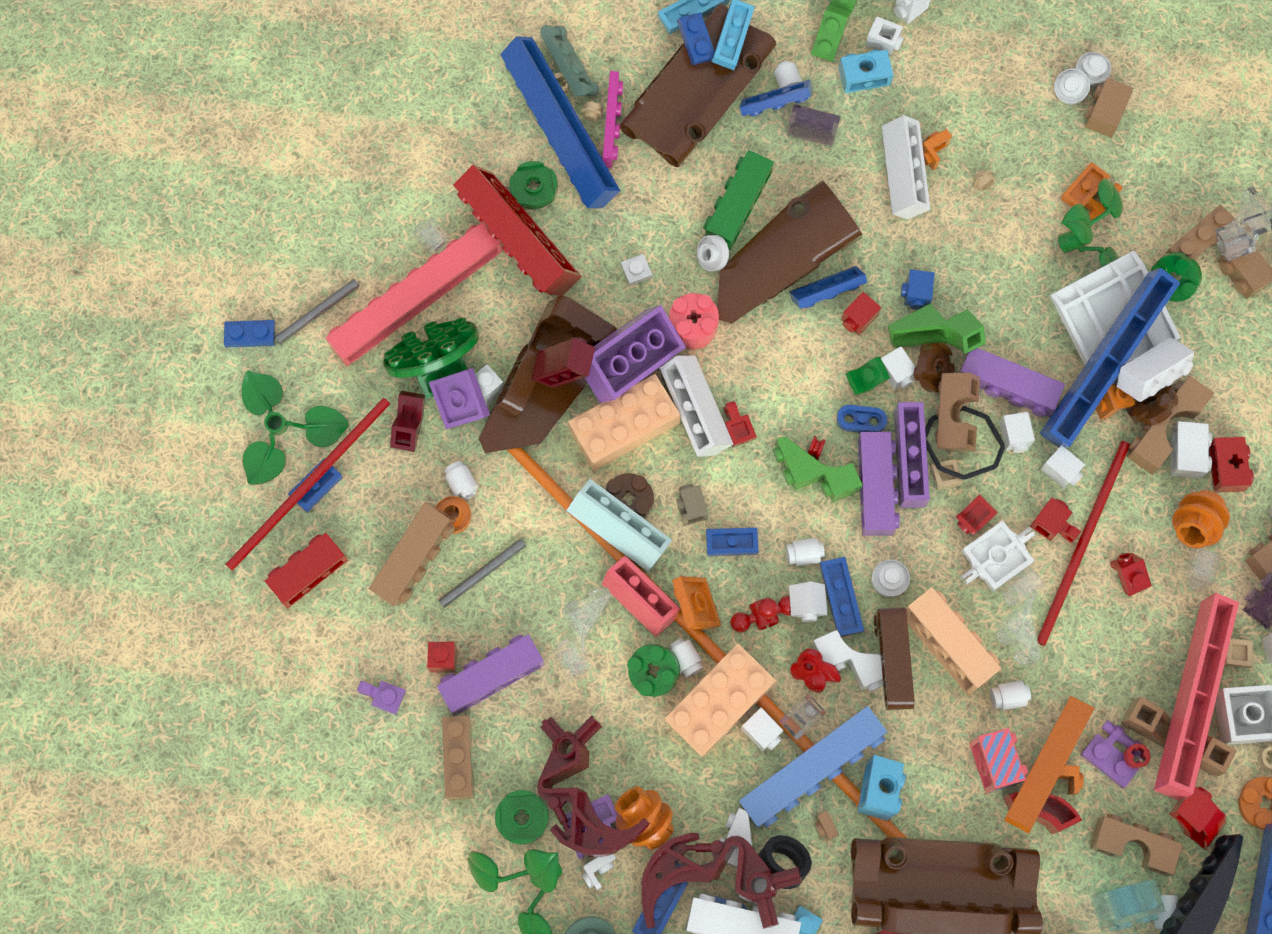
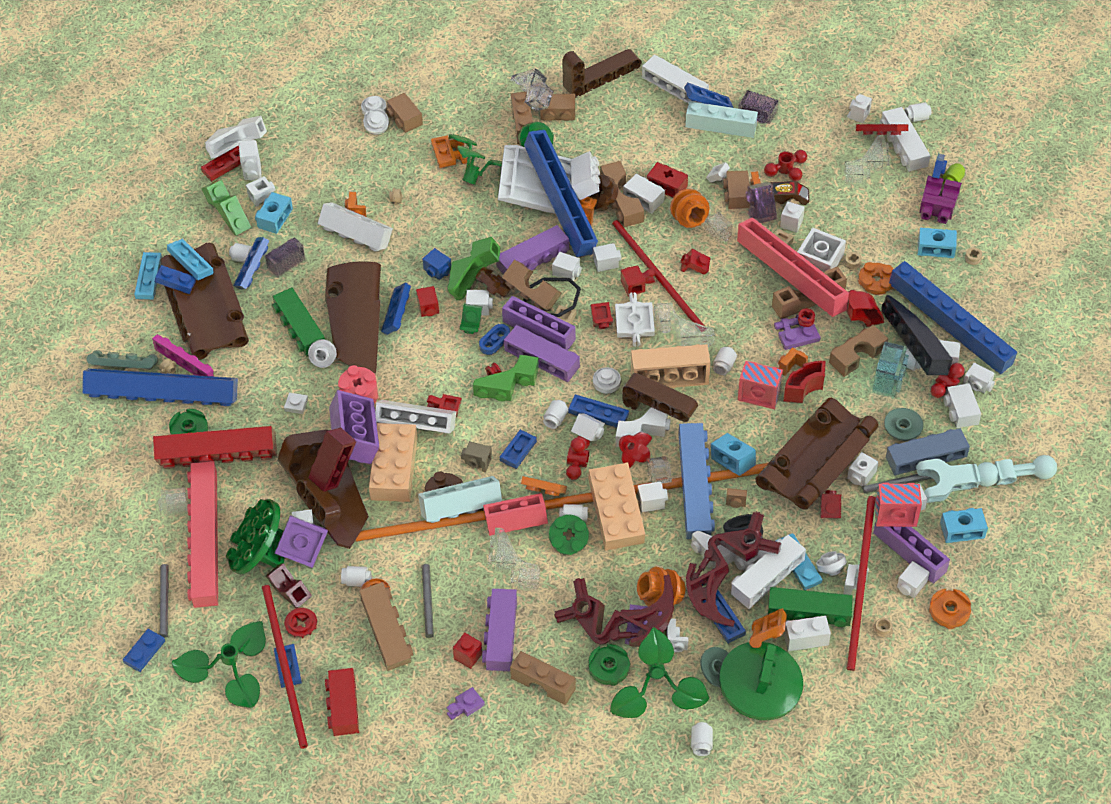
camera: 55 degrees left, 20 degrees down
(369, 453) = (301, 614): none -> red gear
(1049, 764) = (781, 358): orange tile -> none

